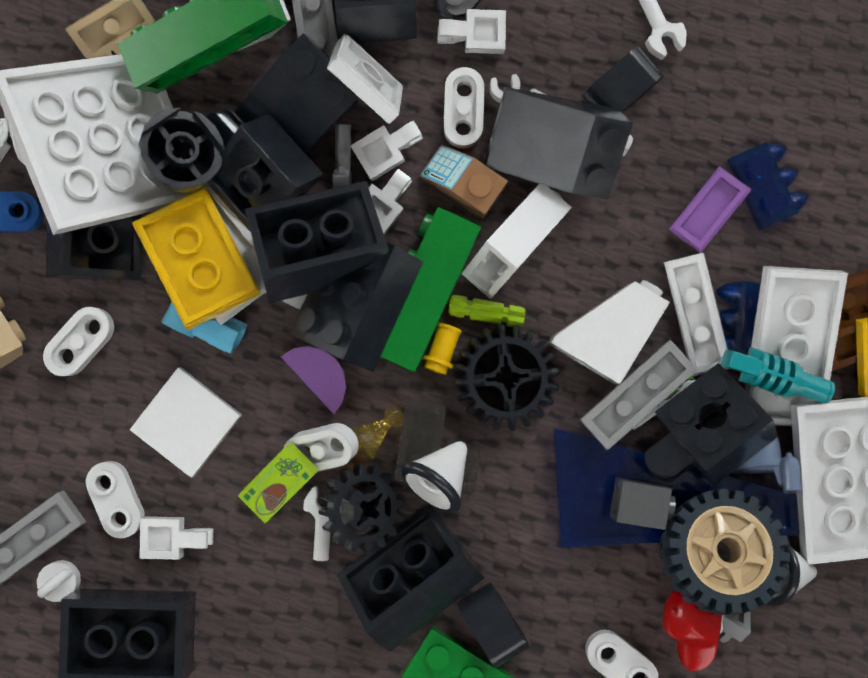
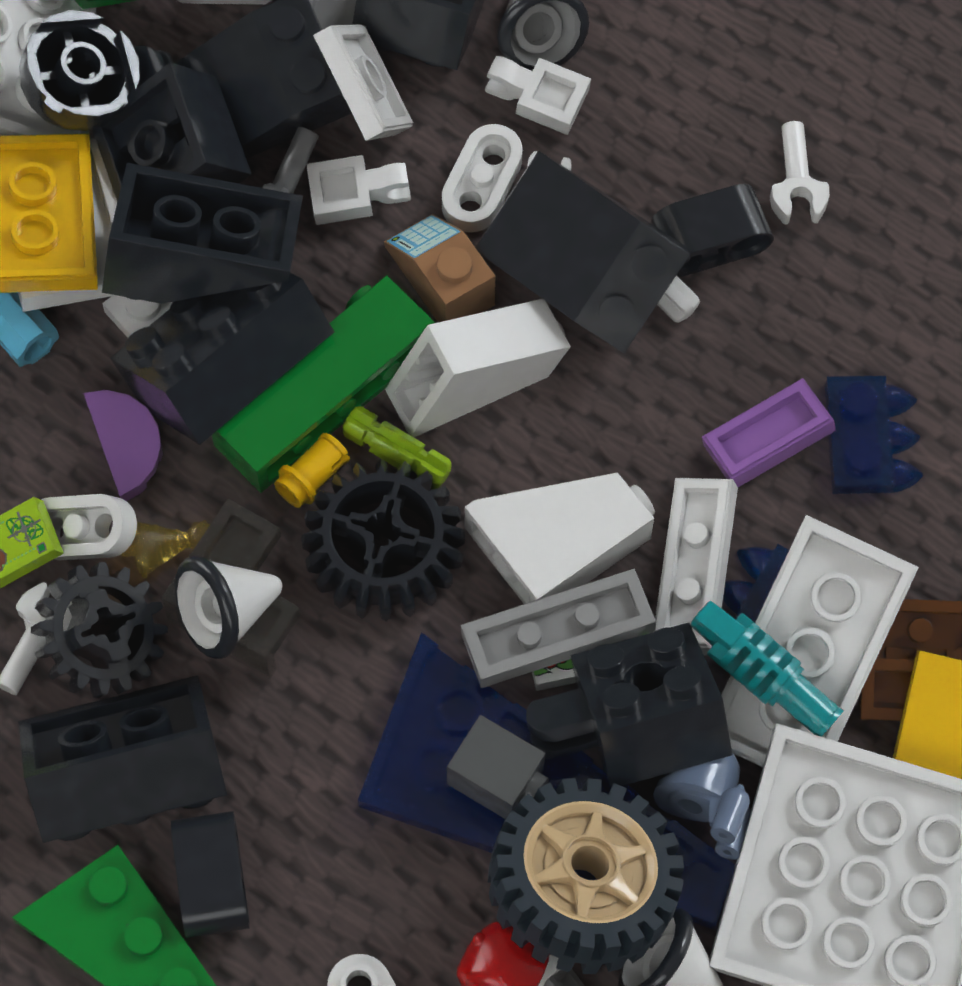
camera: 25 degrees right, 20 degrees down
(385, 200) = (318, 253): white plate -> none

